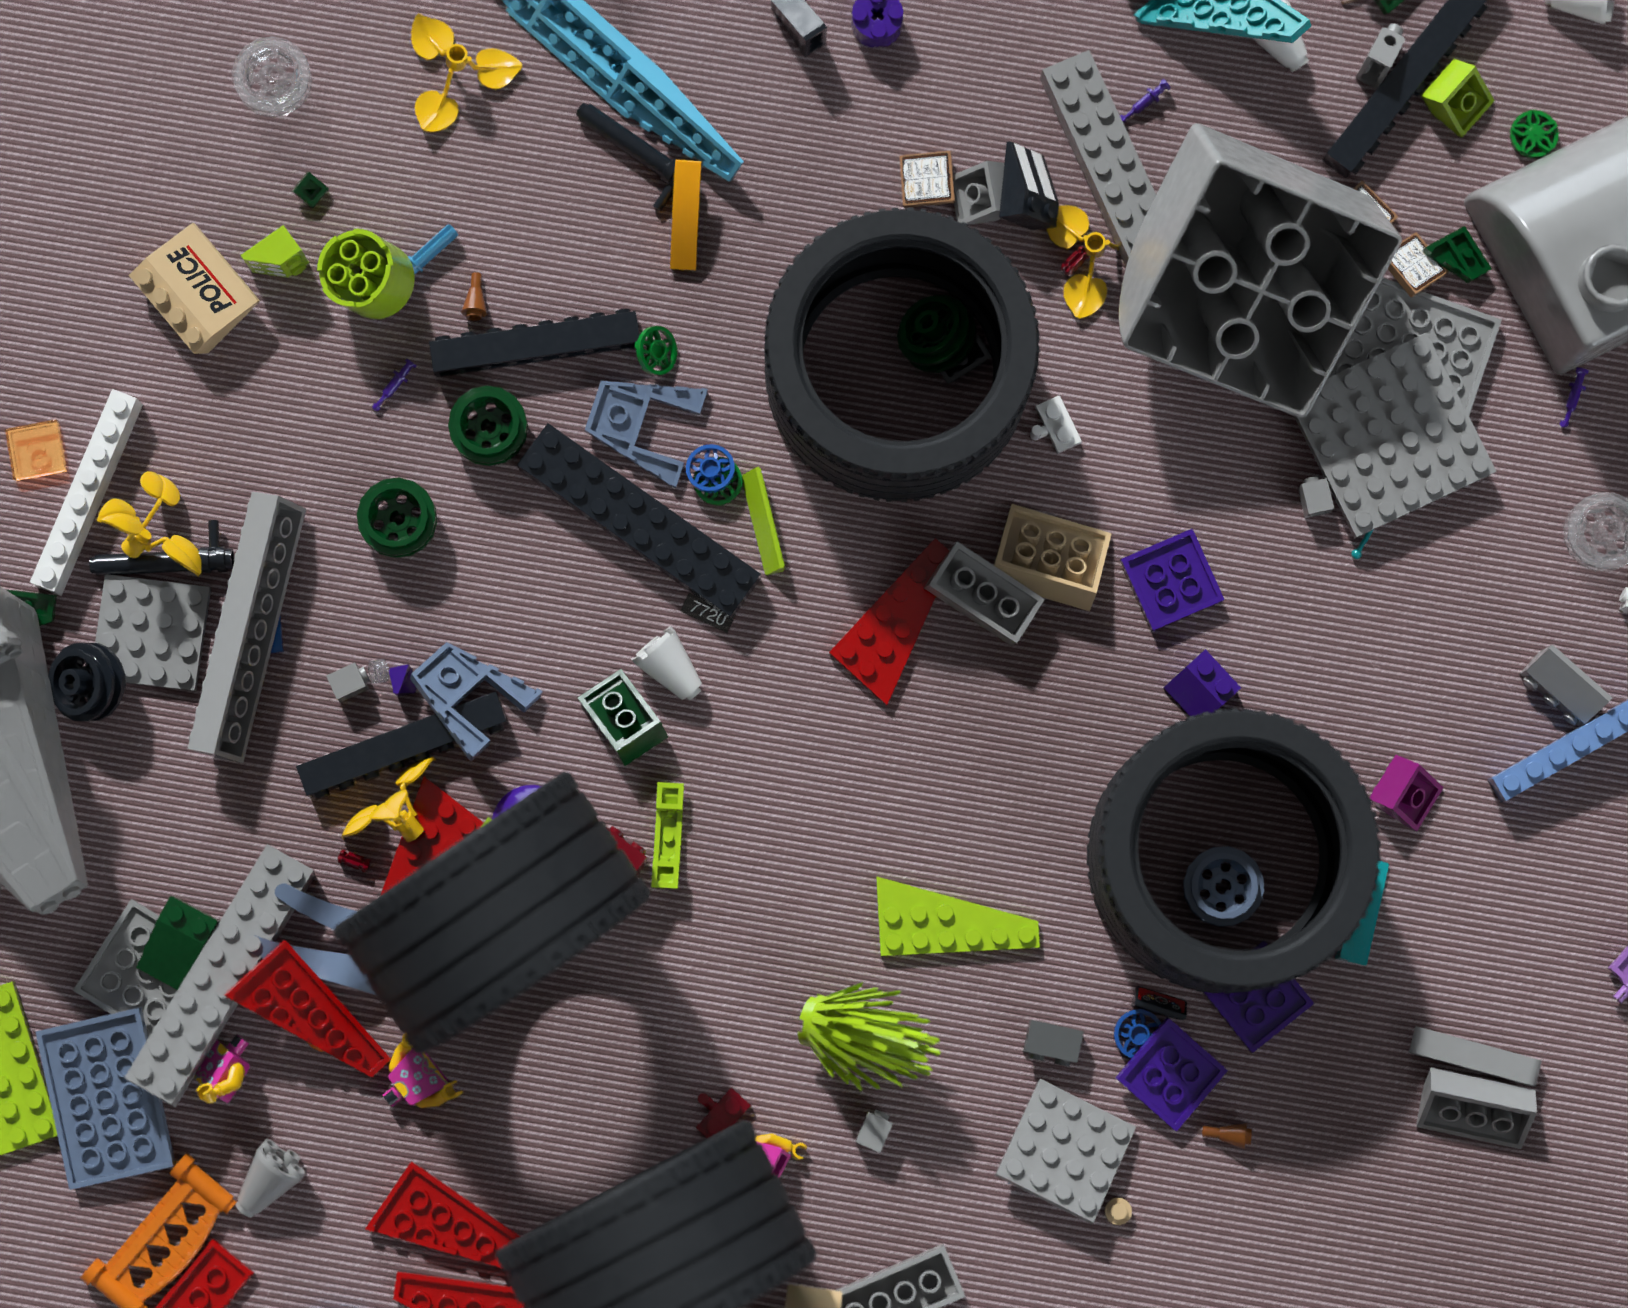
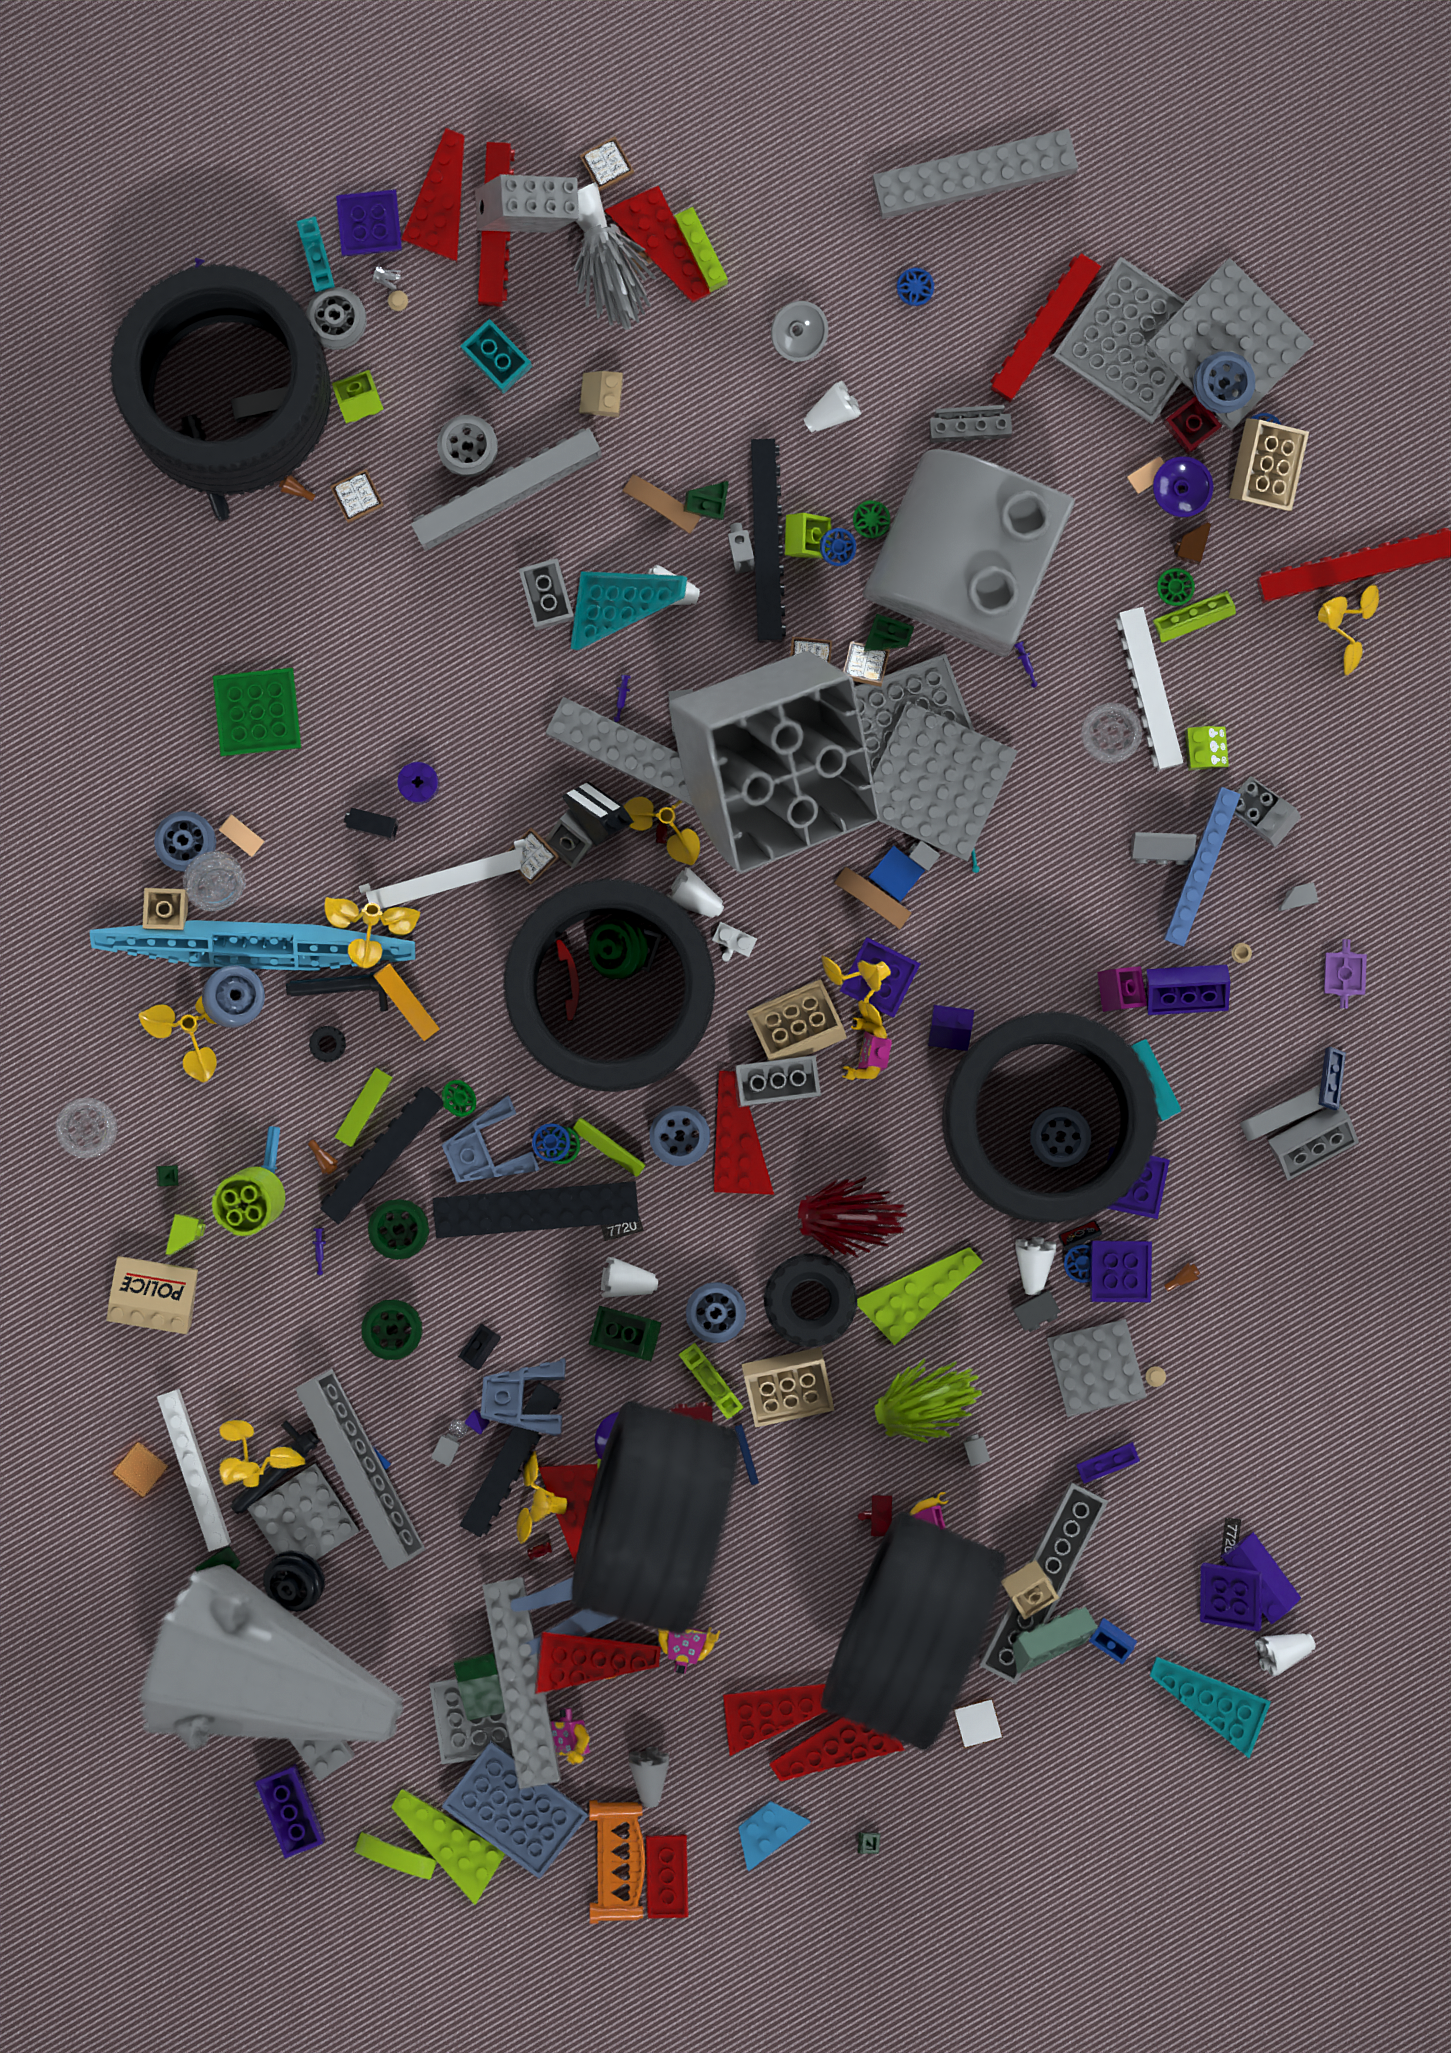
camera: 35 degrees left, 5 degrees up
(468, 610) = (479, 1347): none -> black slope
(508, 83) = (217, 997): none -> sand blue wheel
(557, 284) = (363, 1107): none -> lime slope
(574, 209) = (330, 1031): none -> black tyre
(640, 938) = (746, 1454): none -> dark blue tile
(685, 128) = (366, 952): none -> yellow plant
(710, 790) = (696, 1321): none -> sand blue wheel
(738, 907) = (788, 1387): none -> tan slope
(825, 132) = (446, 879): none -> white piece
(830, 542) = (662, 1148): none -> sand blue wheel
(846, 353) = (571, 1005): none -> red slope
(848, 798) = (840, 1309): none -> black tyre
(920, 767) = (835, 1218): none -> dark red plant
(997, 1257) = (1107, 1462): none -> dark purple plate
(1059, 349) = (695, 895): none -> white cone
(1091, 992) = (1034, 1263): none -> white cone
(1105, 646) = (874, 1051): none -> torso
(1170, 569) = (871, 973): none -> yellow plant
(1231, 497) = (872, 897): none -> medium nougat slope
(1273, 493) = (896, 874): none -> blue tile
(1472, 849) = (1187, 989): none -> dark purple slope
(1479, 131) = (837, 547): none -> blue wheel
(1548, 1059) = (1332, 1078): none -> dark blue tile
(1556, 858) = (1241, 953): none -> tan plate

